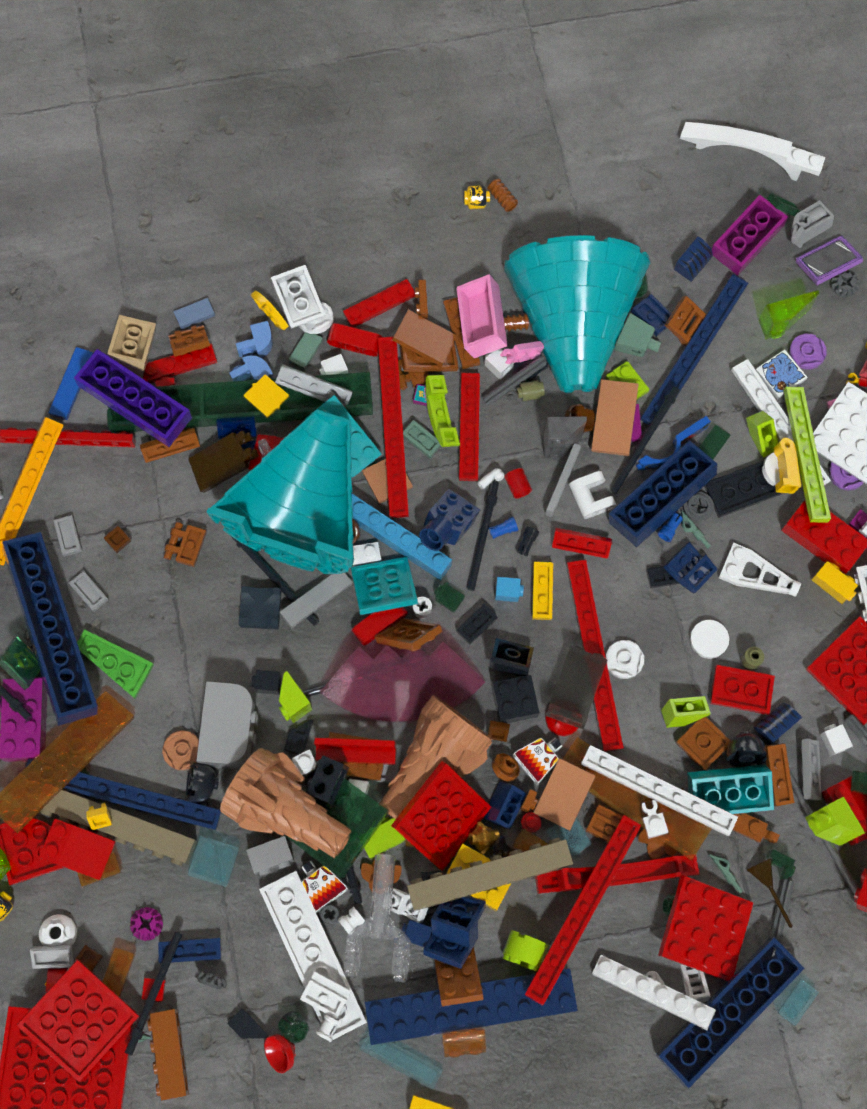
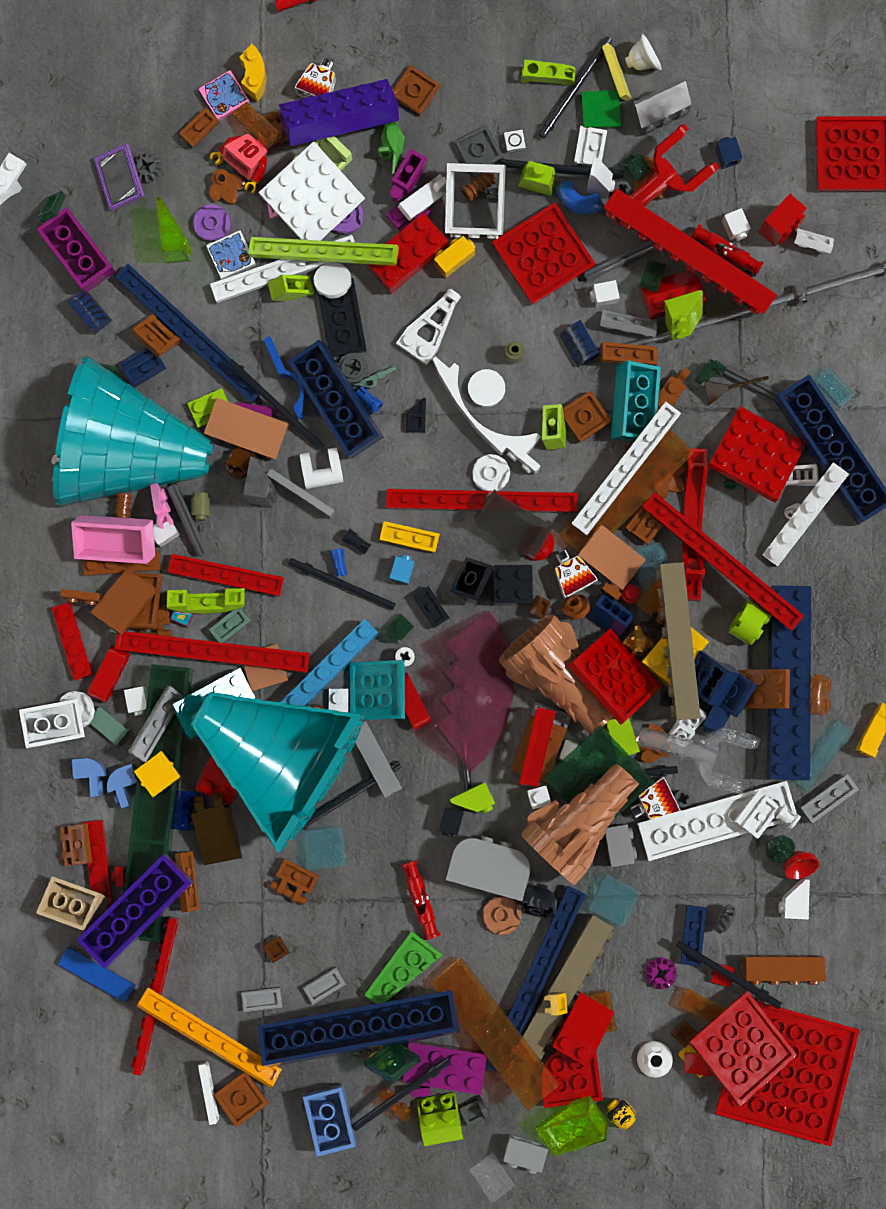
camera: 75 degrees left, 10 degrees up
(51, 956) = (677, 1067): light grey tile -> none
(194, 313) = (44, 835): sand blue tile -> none
(196, 660) = (418, 893): none -> red piece
(221, 566) = (325, 848): none -> clear light blue plate
(240, 1055) = (796, 901): none -> white slope
(246, 1026) = (771, 892): black tile -> none
(260, 607) = (375, 816): black brick -> none
(263, 447) = (219, 784): clear tile -> none
(269, 310) = (59, 756): yellow tile -> none
(298, 738) = (510, 800): black tile -> none
(332, 782) = (564, 774): black brick -> none
(351, 920) = (692, 778): white wheel -> none
(356, 1073) = (829, 798): none -> light grey plate
(408, 634) = (433, 675): dark orange plate -> none
(447, 521) = (324, 615): dark blue brick -> none
(491, 476) = (283, 566): white arm -> none
(518, 483) = (295, 538): red piece -> none
(582, 543) = (369, 489): red plate -> none
(636, 337) = (164, 388): sand green torso -> none
(654, 823) = (655, 480): white plate -> none
(657, 679) = (516, 446): none -> white slope
(690, 568) = (414, 390): dark blue slope -> none
(714, 442) = (290, 338): clear green tile -> none
(725, 871) = (706, 424): sand green hand -> none
(742, 689) = (541, 369): red plate -> none
(745, 750) = (600, 379): black cylinder -> none
(788, 467) = (332, 272): yellow leg -> none
(811, 223) = (75, 185): light grey piece -> none
(844, 358) = (227, 188): none -> dark orange plate

